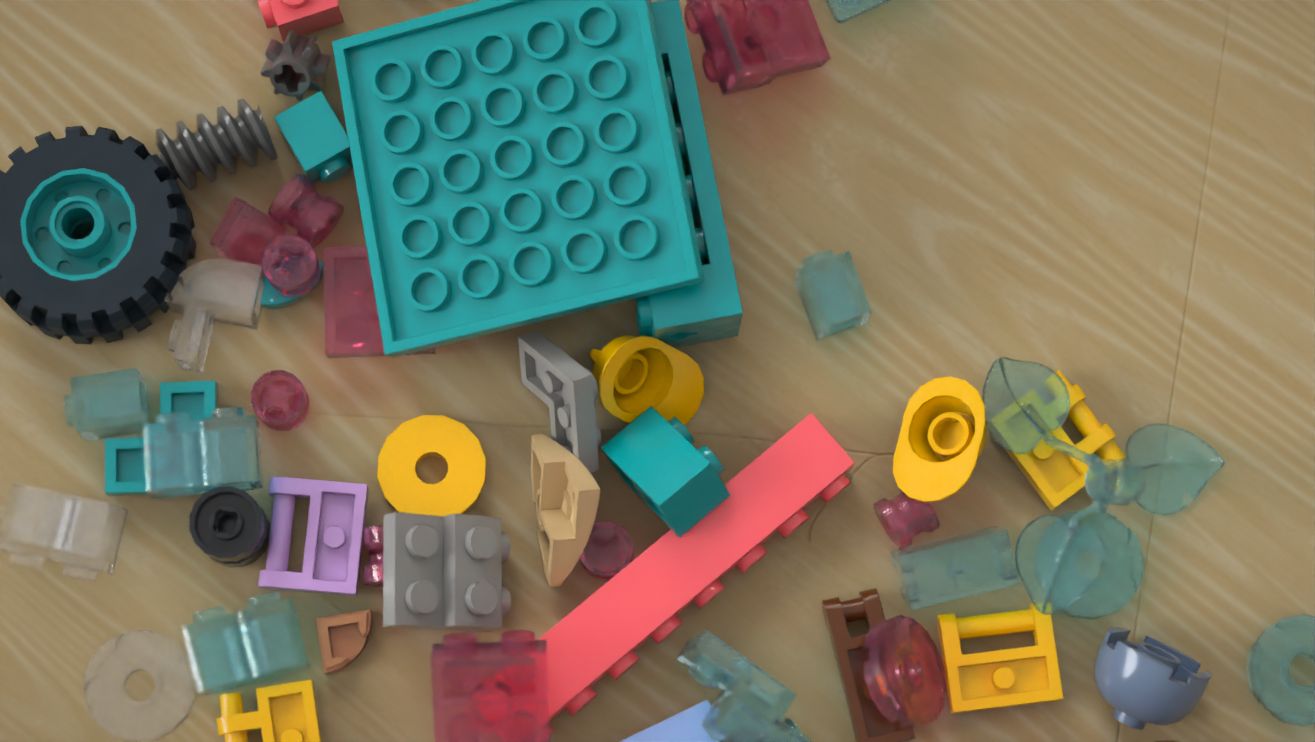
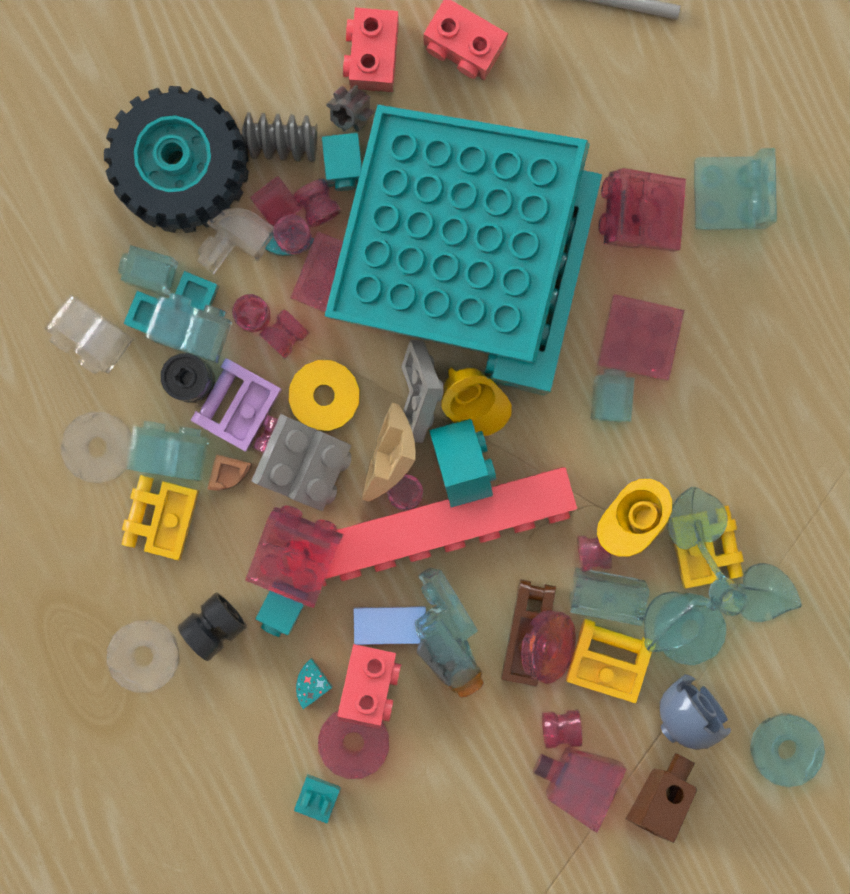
camera: 30 degrees right, 10 degrees up
(338, 407) = (284, 333): none -> clear pink wheel
(832, 197) = (640, 337): none -> clear pink plate

